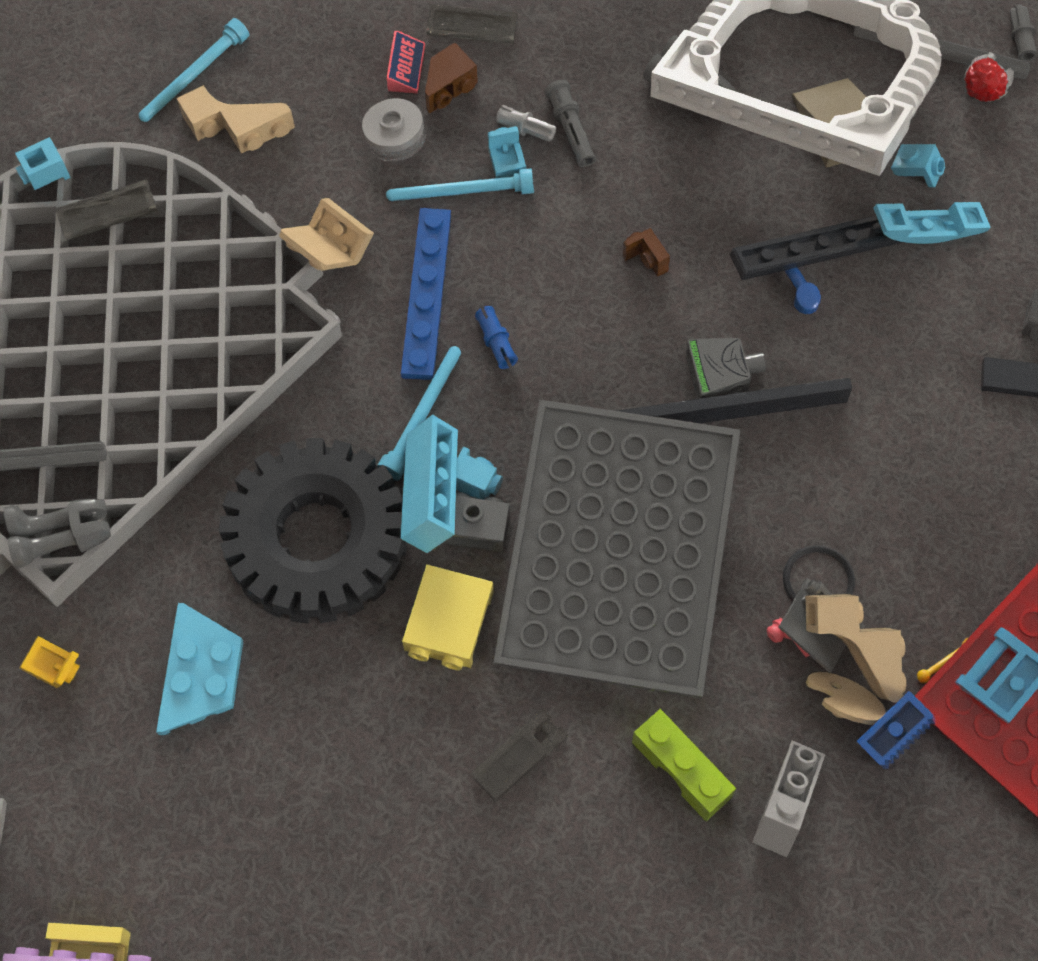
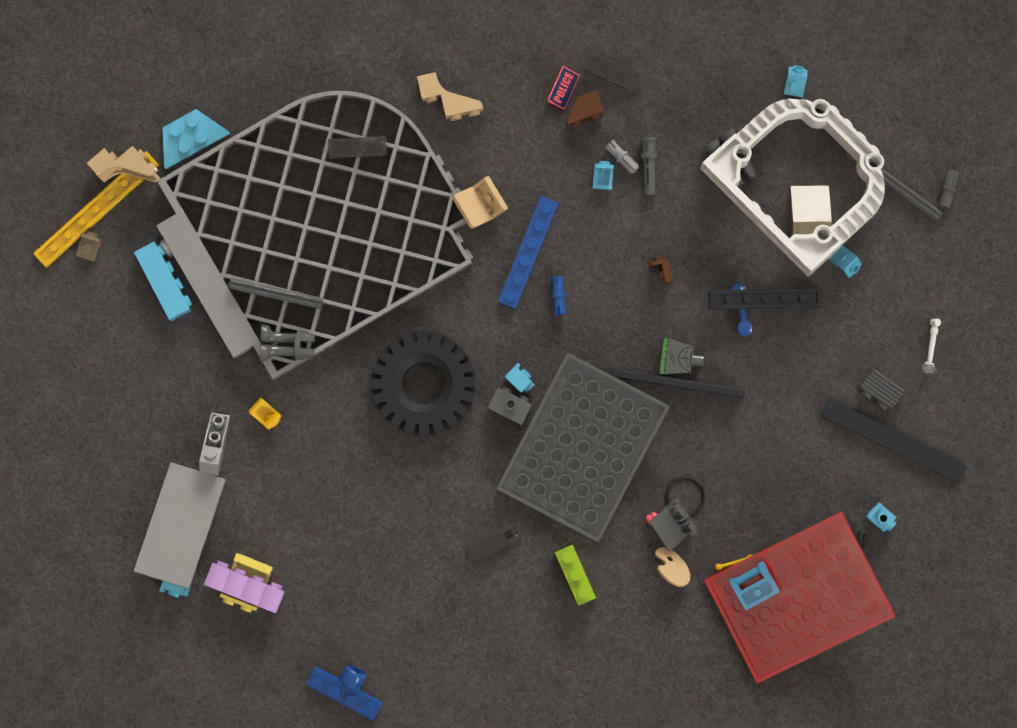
camera: 20 degrees right, 20 degrees up
(41, 164) = (331, 99): medium azure brick -> none
(199, 671) = (342, 441): medium azure wing -> none
(234, 33) = (463, 32): medium azure piece -> none
(394, 129) = (541, 136): light grey piece -> none
(395, 459) = (478, 355): medium azure piece -> none
(429, 484) = (492, 381): medium azure brick -> none
(447, 617) = (479, 456): light yellow panel -> none
(520, 182) = (605, 196): medium azure piece -> none
(789, 799) = (623, 608): light grey slope -> none
(874, 649) = (696, 547): tan arch -> none
(896, 730) = (689, 594): blue brick -> none
(931, 226) = (834, 304): medium azure slope -> none
(987, 79) = (907, 219): red piece -> none

